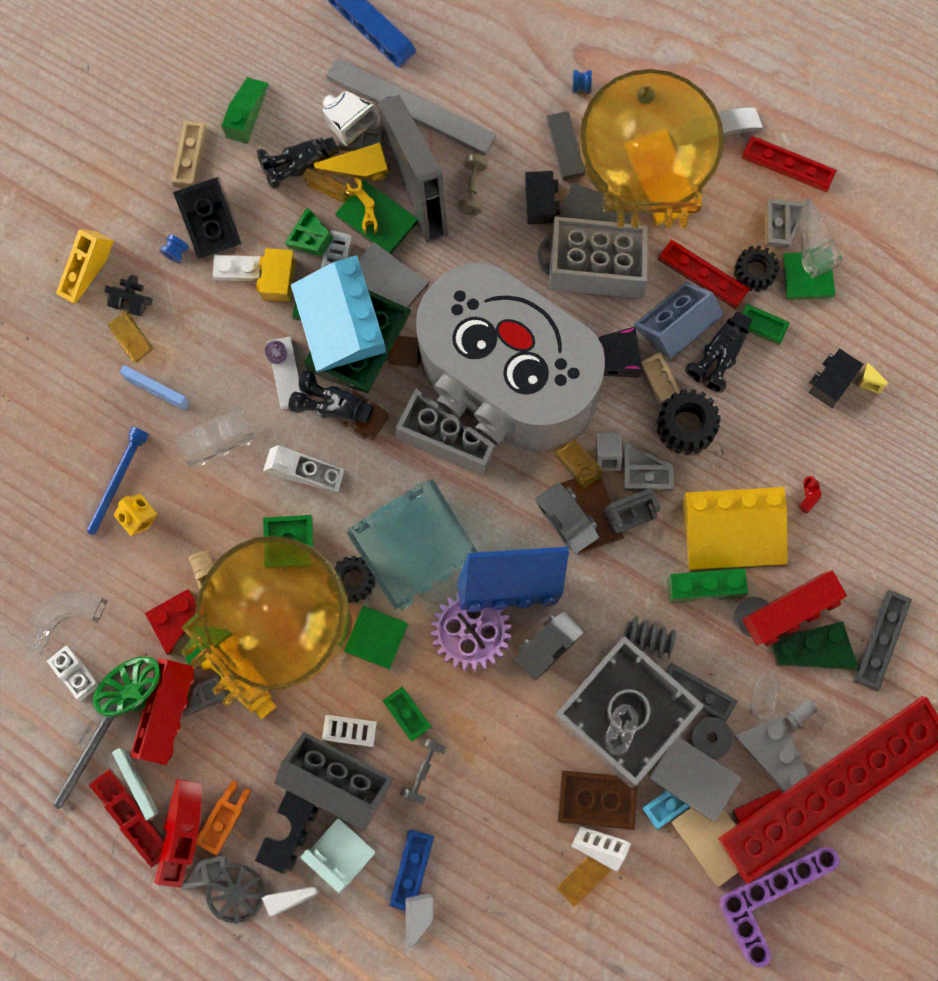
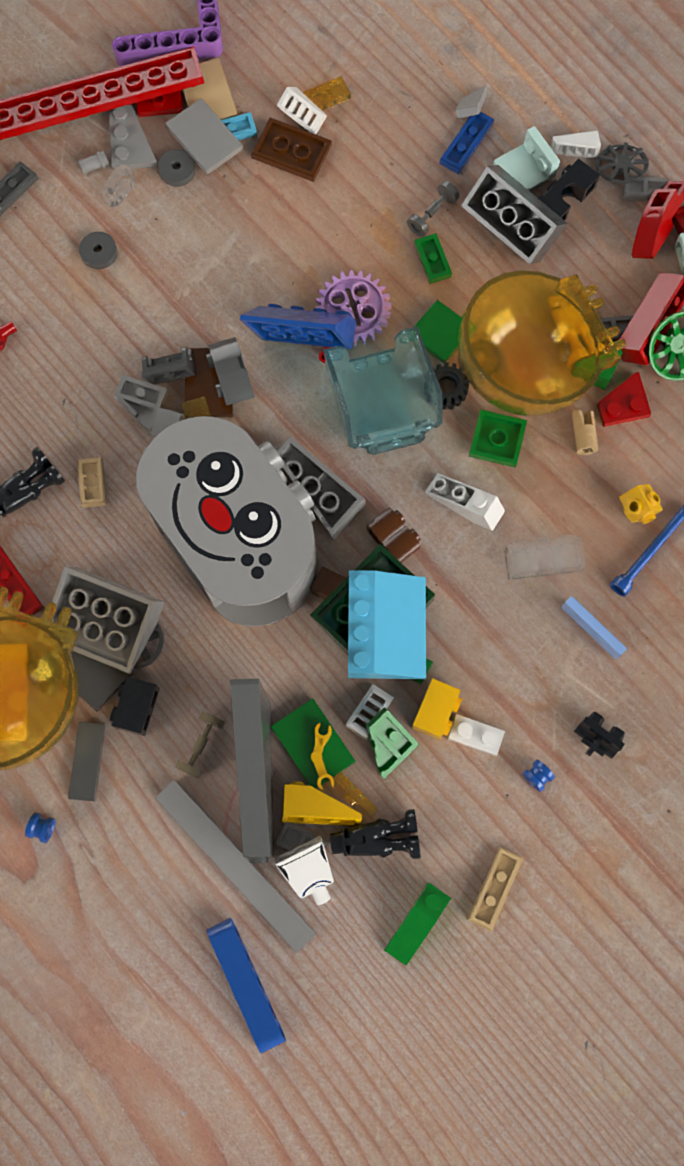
camera: 165 degrees left, 0 degrees up
(84, 263) = (639, 789): yellow slope -> none
(130, 336) = (607, 691): clear yellow plate -> none
(208, 217) = (493, 802): black slope -> none
(222, 820) = (618, 221): orange hinge -> none
(268, 352) = (453, 620): clear purple bush -> none
(286, 373) = (455, 605): white tile -> none
(327, 729) = (490, 253): white slope -> none
(337, 403) = (414, 542): black piece -> none
(390, 277) = (324, 671): light grey tile -> none
(548, 645) = (290, 273): dark grey brick -> none
(621, 353) = (122, 517): black torso -> none
(627, 732) = (251, 155): clear beam -> none
(637, 681) = (241, 185): light grey brick -> none
(650, 637) = (195, 256): dark grey piece -> none
(679, 319) = (49, 534): sand blue slope -> none
(698, 406) = (75, 412): black tyre -> none
(707, 584) = (145, 284): green arch -> none
(715, 701) = (173, 205): dark grey tile -> none
(736, 528) = (80, 327): yellow slope -> none
(794, 608) = (60, 240): red brick -> none
(820, 647) = (57, 210): dark green wing -> none

